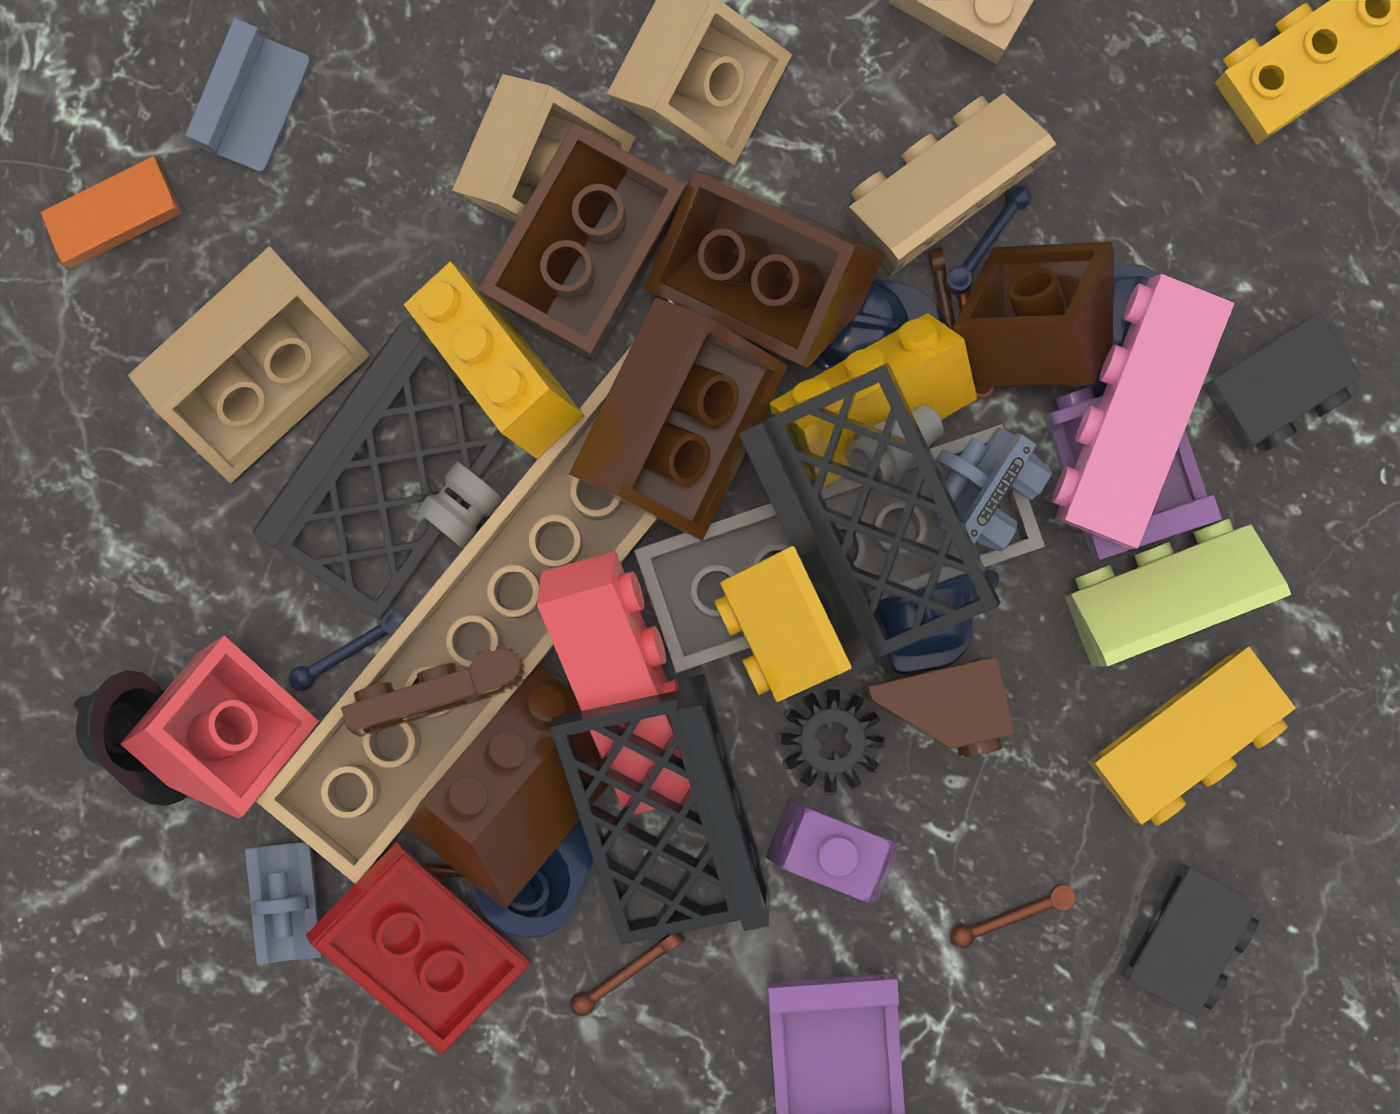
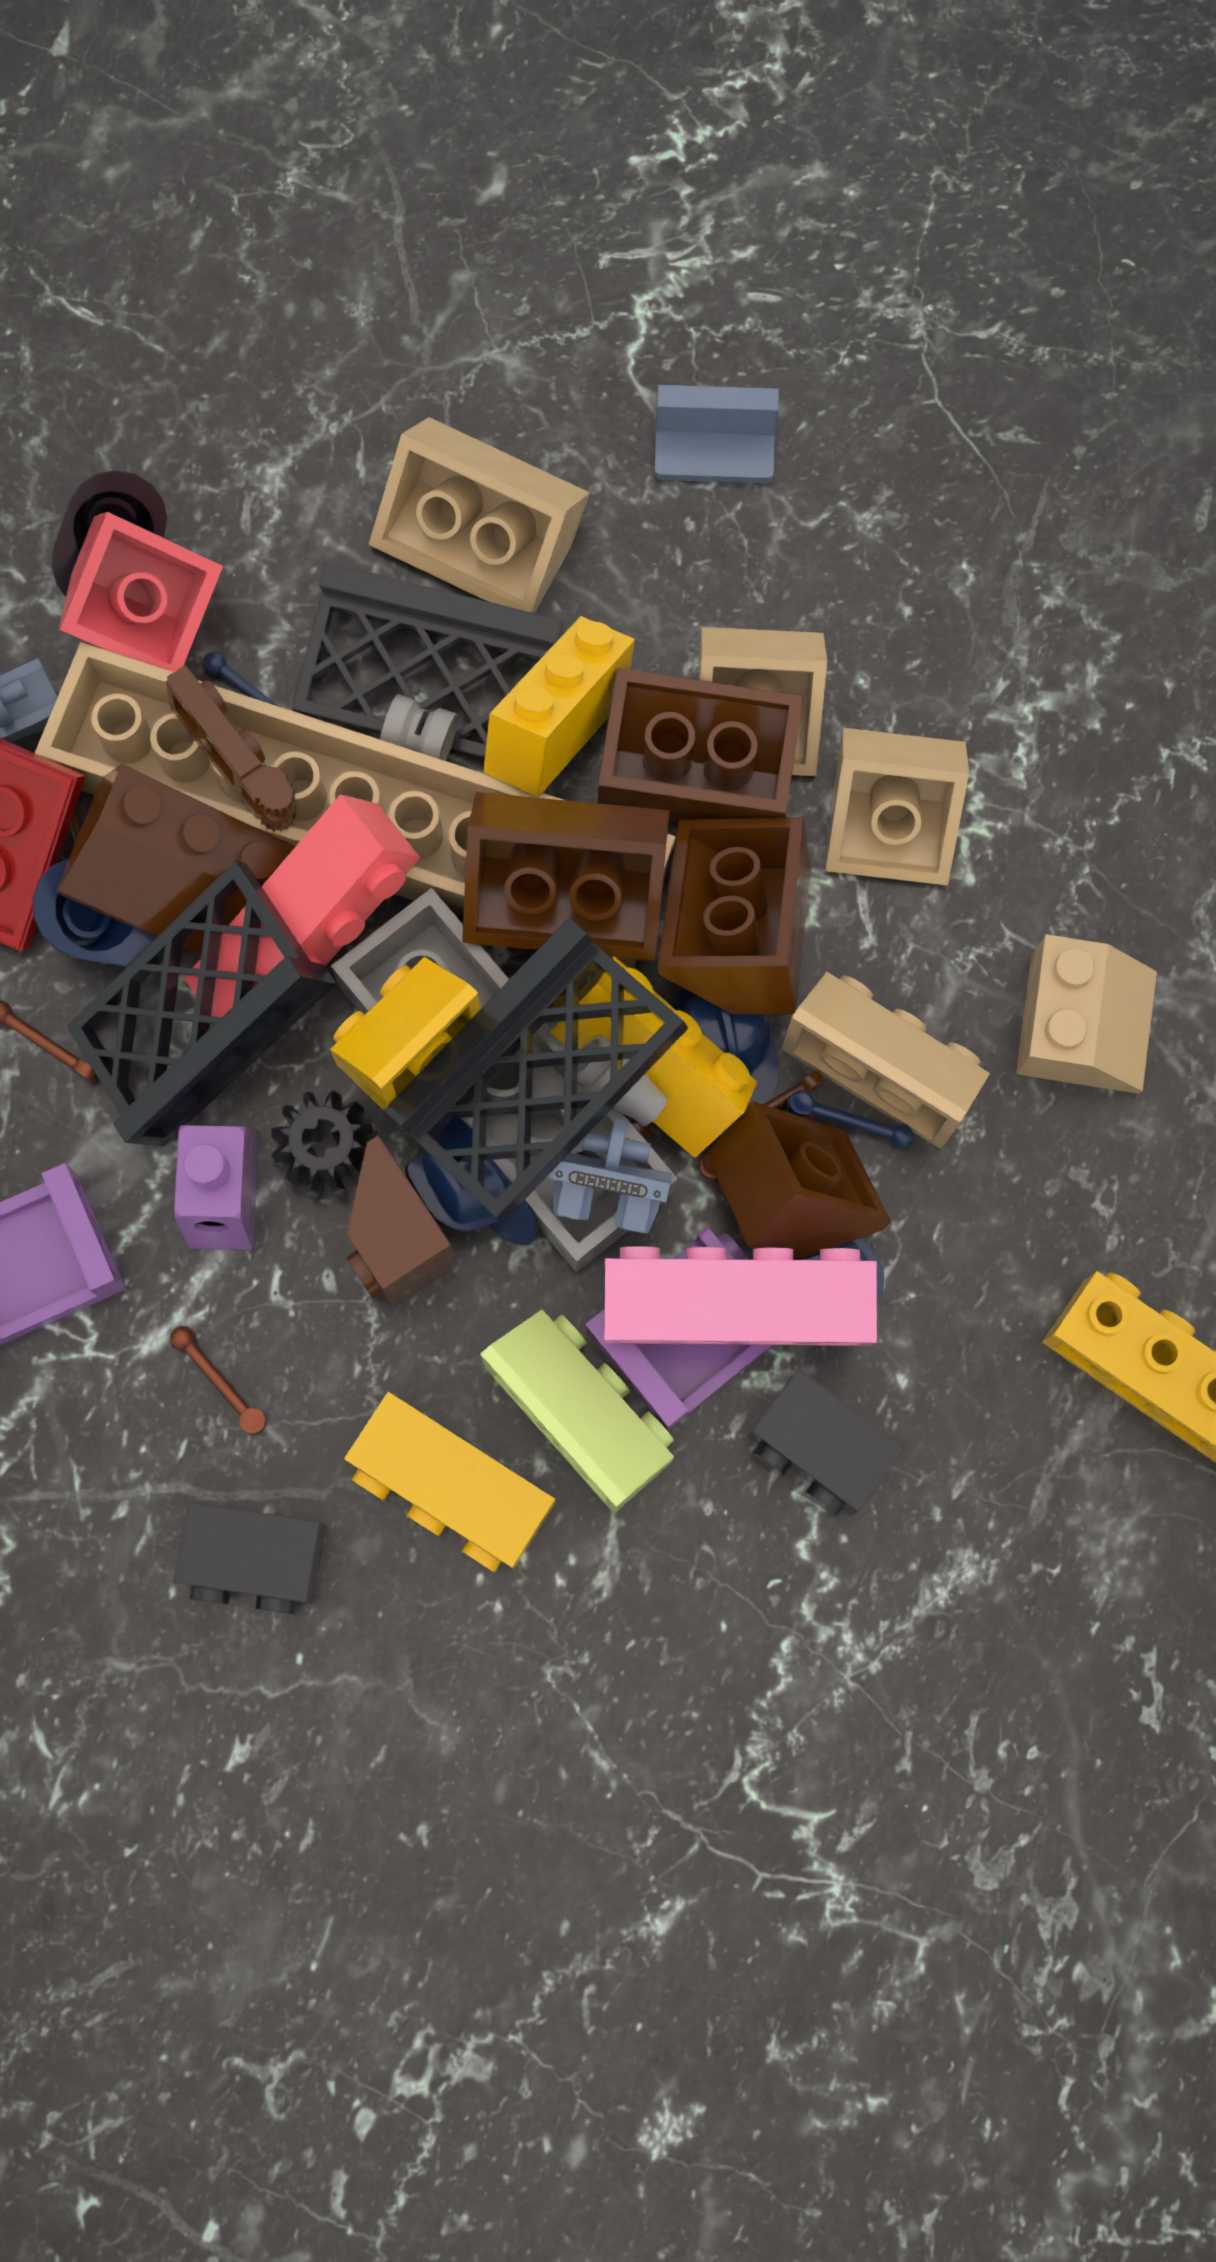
camera: 65 degrees right, 10 degrees down
(110, 213) = (567, 364): orange slope -> none

